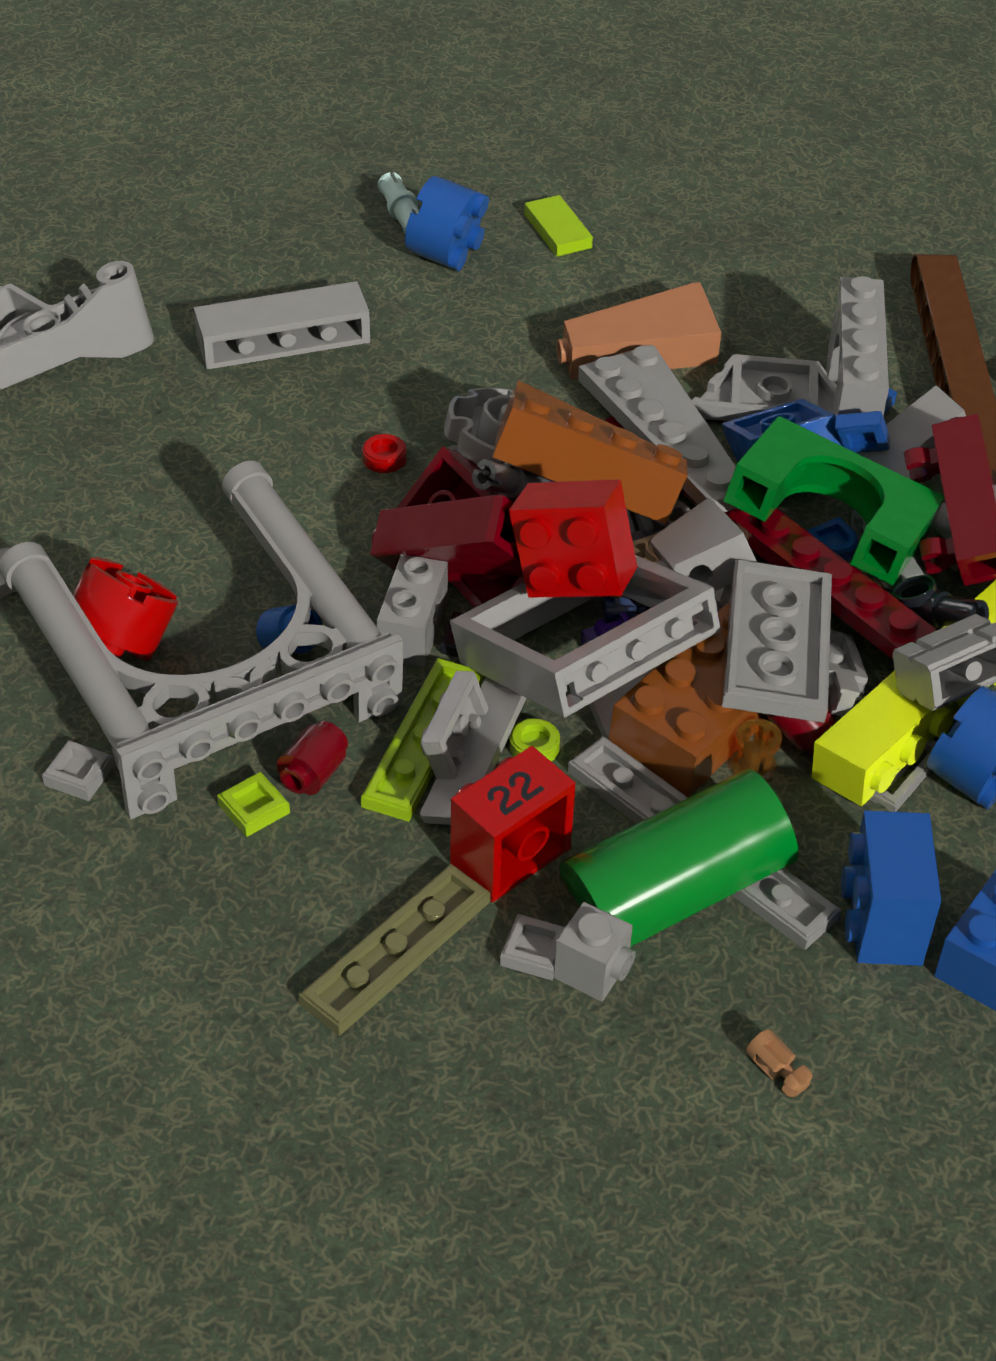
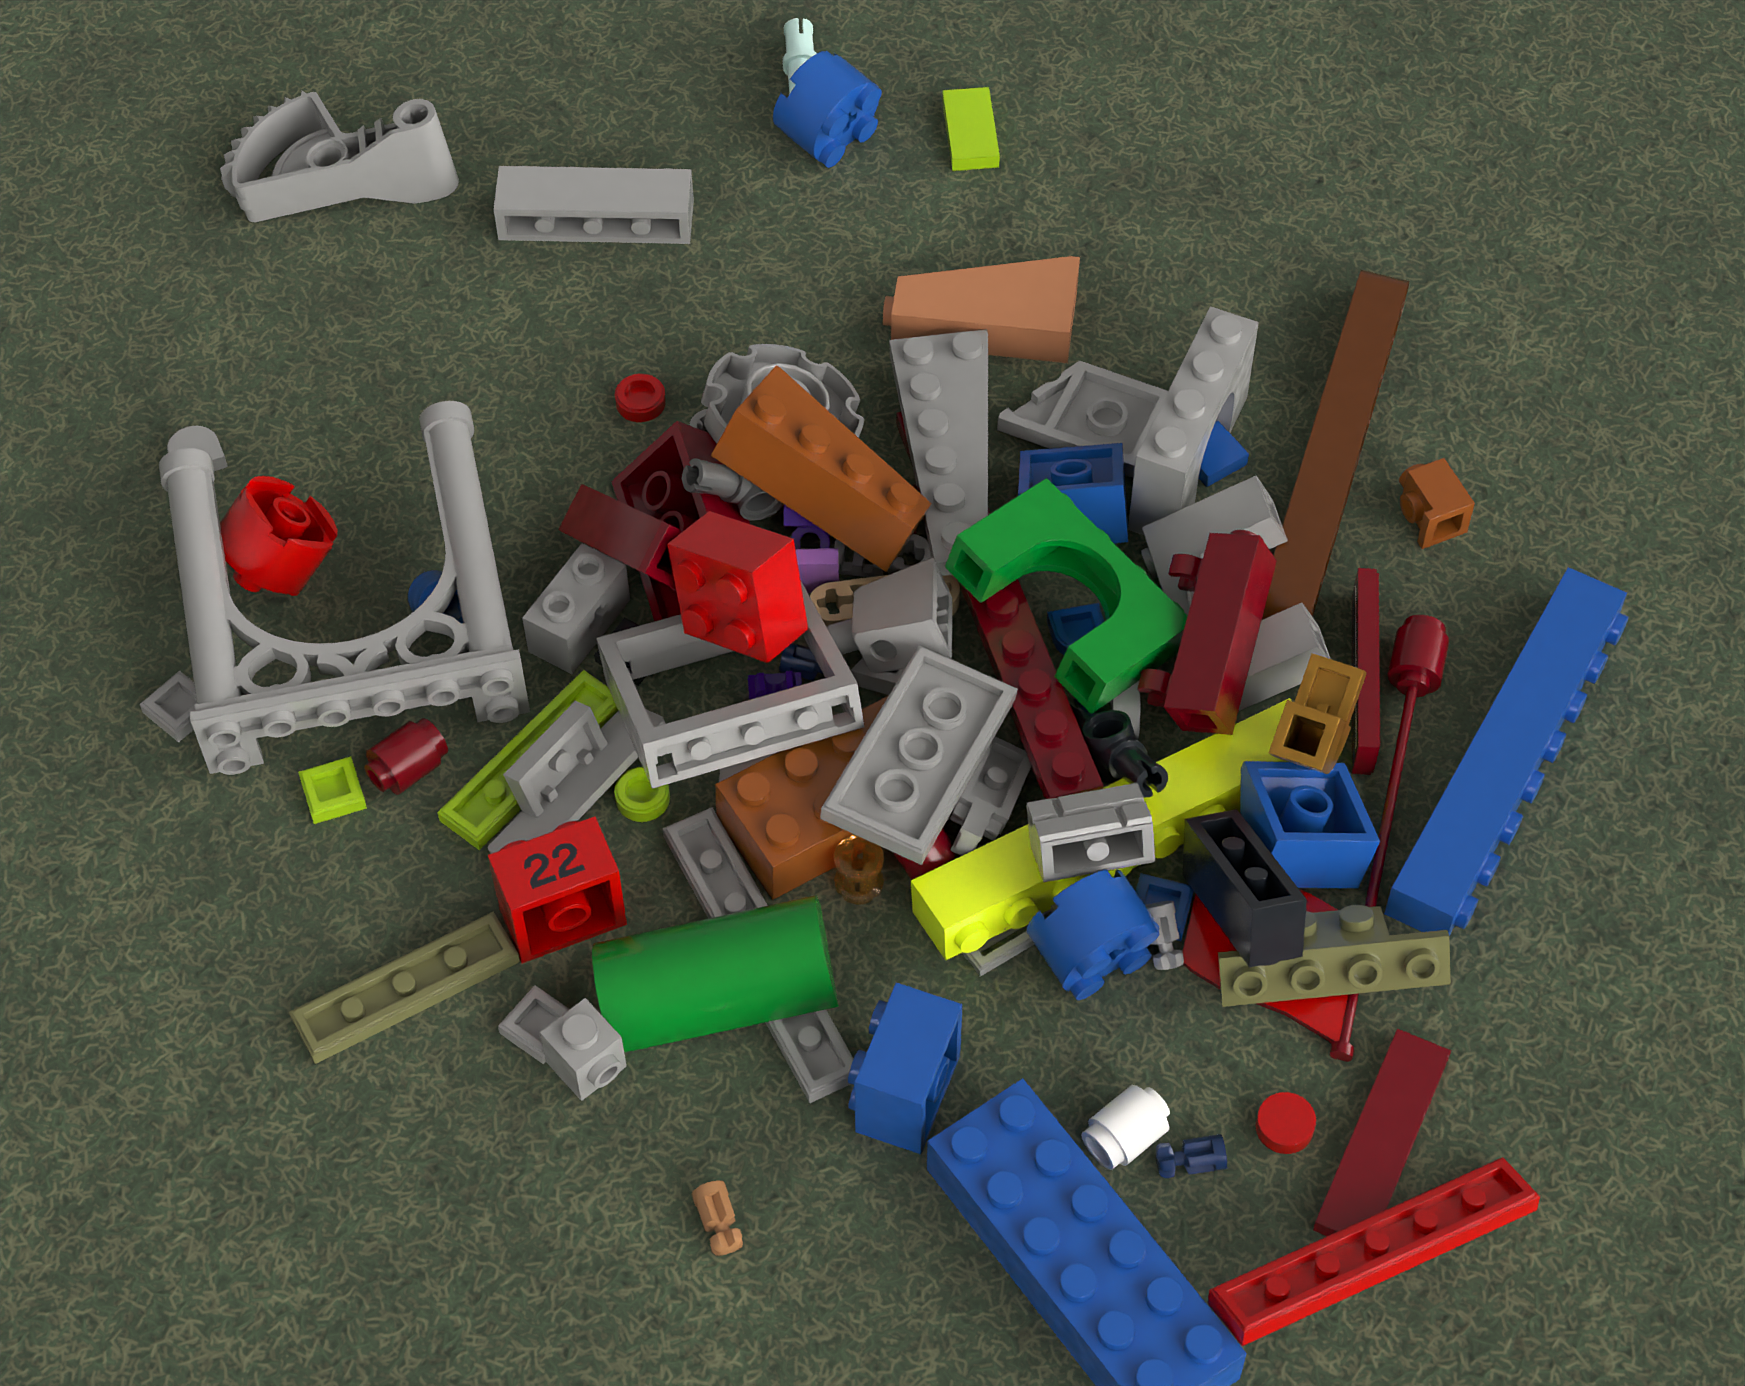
camera: 20 degrees right, 10 degrees up
(863, 431) = (1150, 513): blue tile -> none

